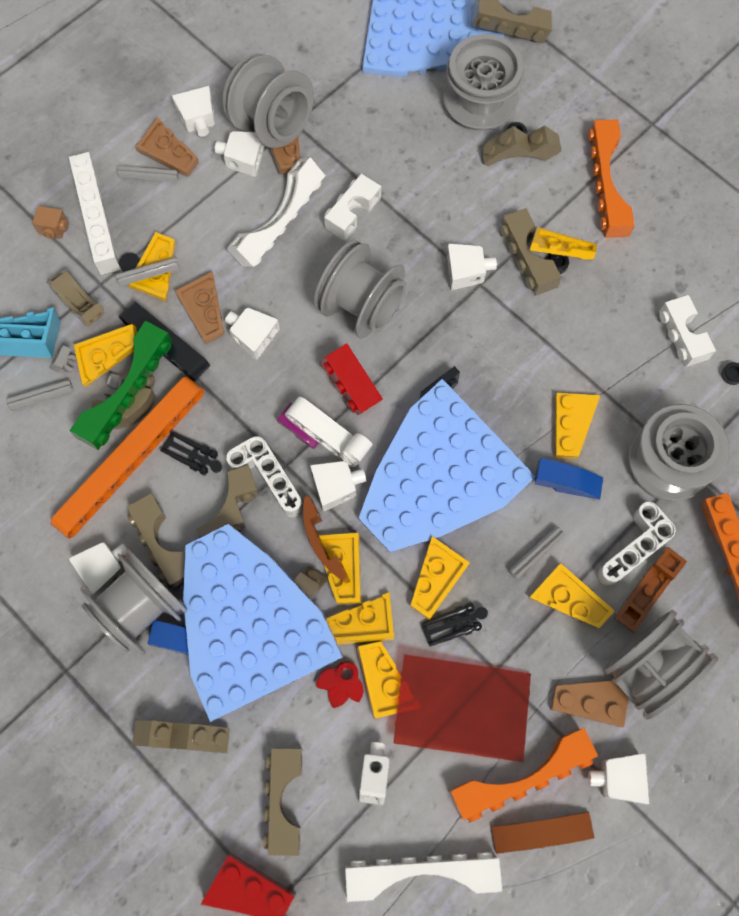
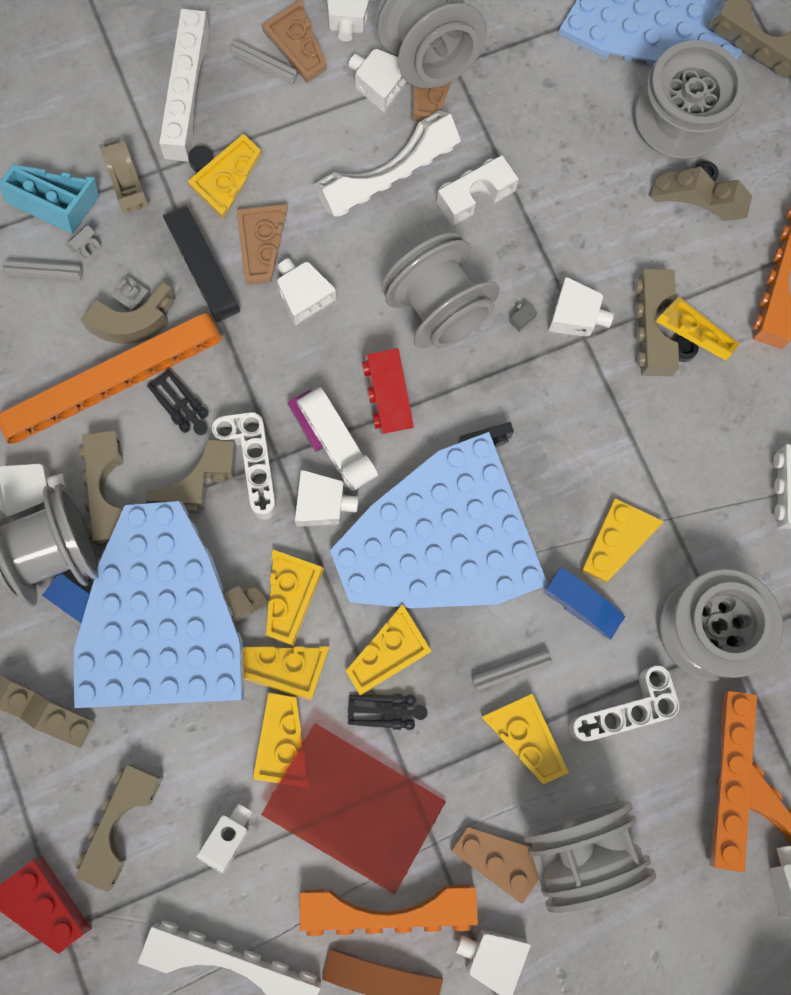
camera: 15 degrees right, 5 degrees up
(50, 222) = (132, 77): medium nougat brick -> none
(97, 423) = (88, 328): green arch -> none
(103, 352) = (130, 250): yellow wing -> none
(147, 271) = (214, 176): light grey axle -> none
(312, 517) = (277, 528): dark orange slope -> none
(339, 687) = (231, 728): red plate -> none
(428, 286) = (523, 316): none -> flat silver piece
(649, 589) = (619, 765): dark orange slope -> none

